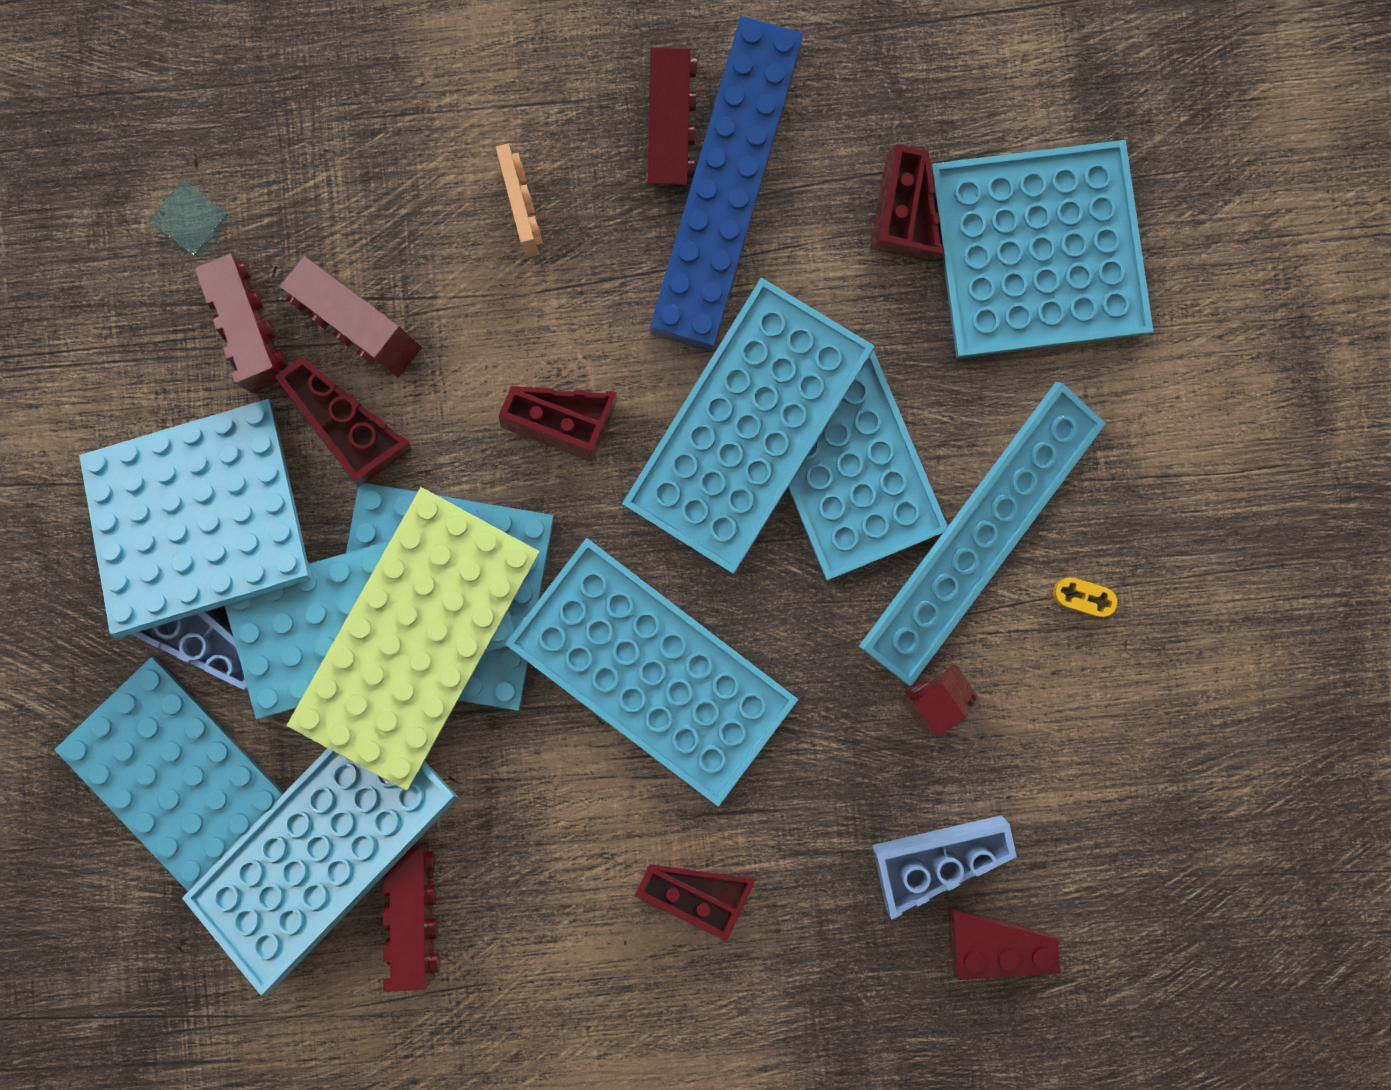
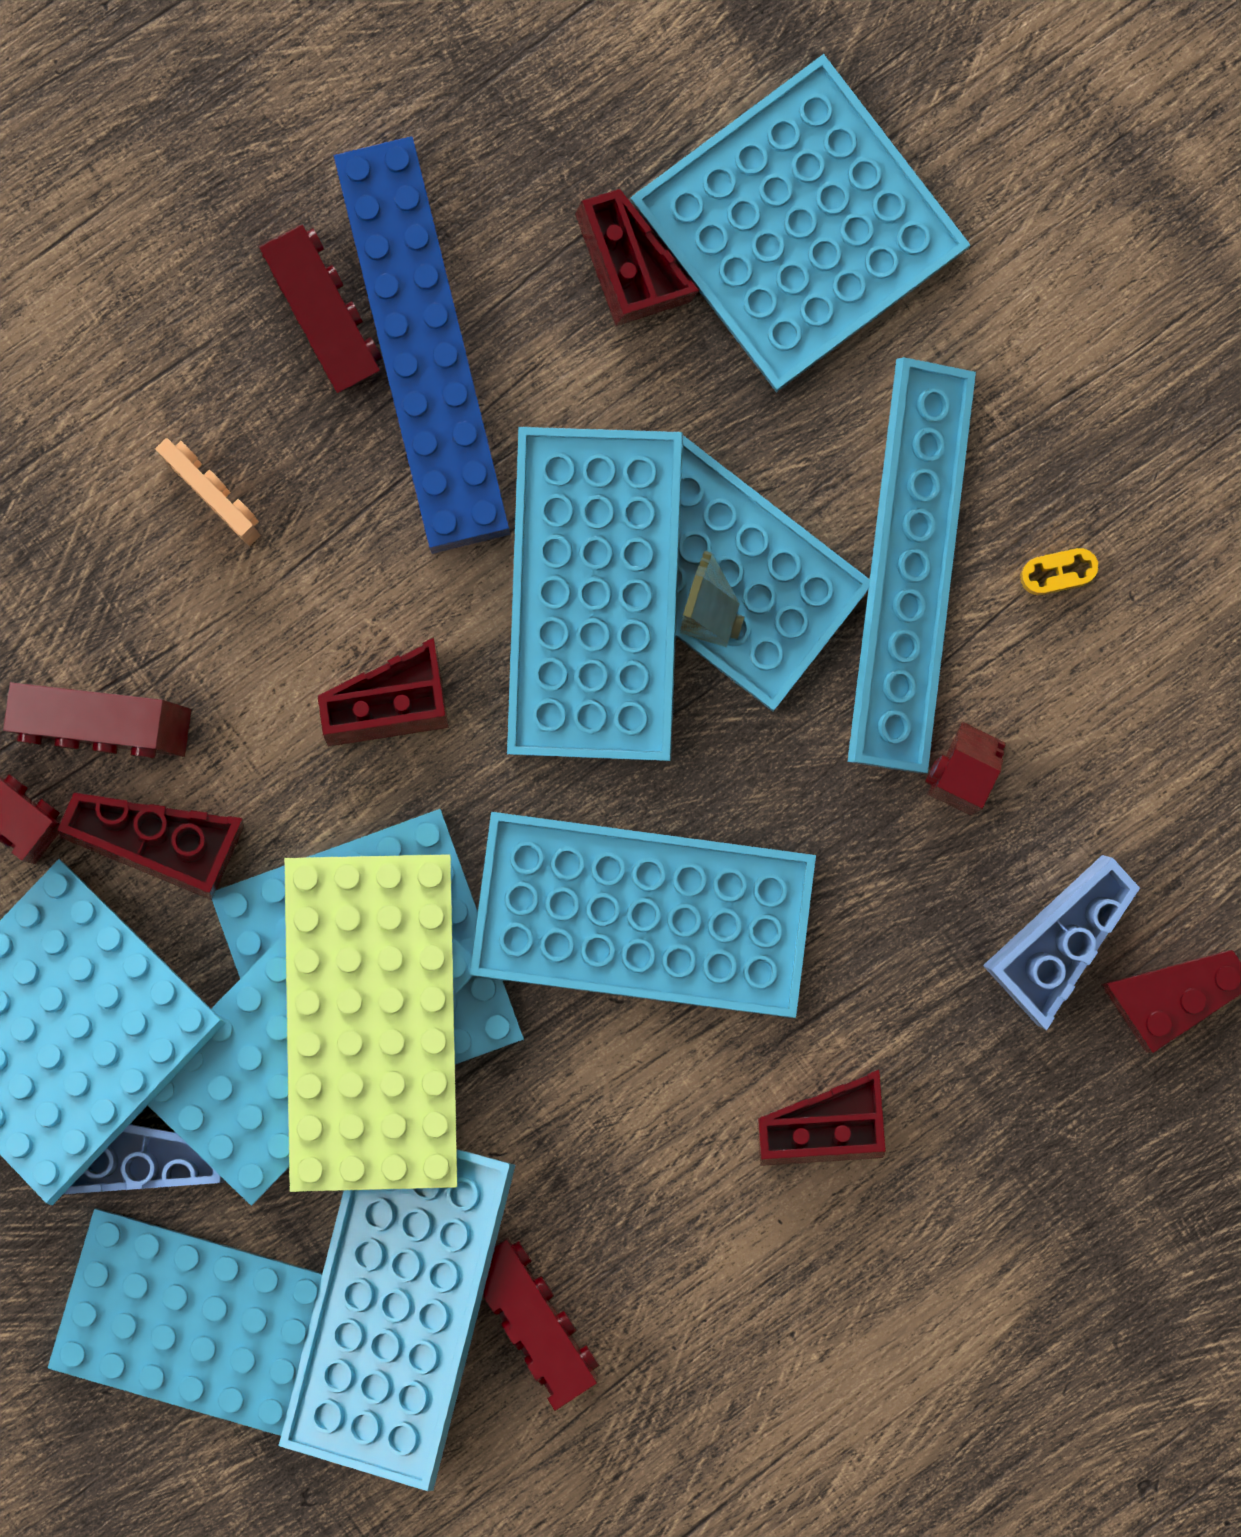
camera: 30 degrees left, 0 degrees up
(824, 480) = (711, 605): none -> olive wedge

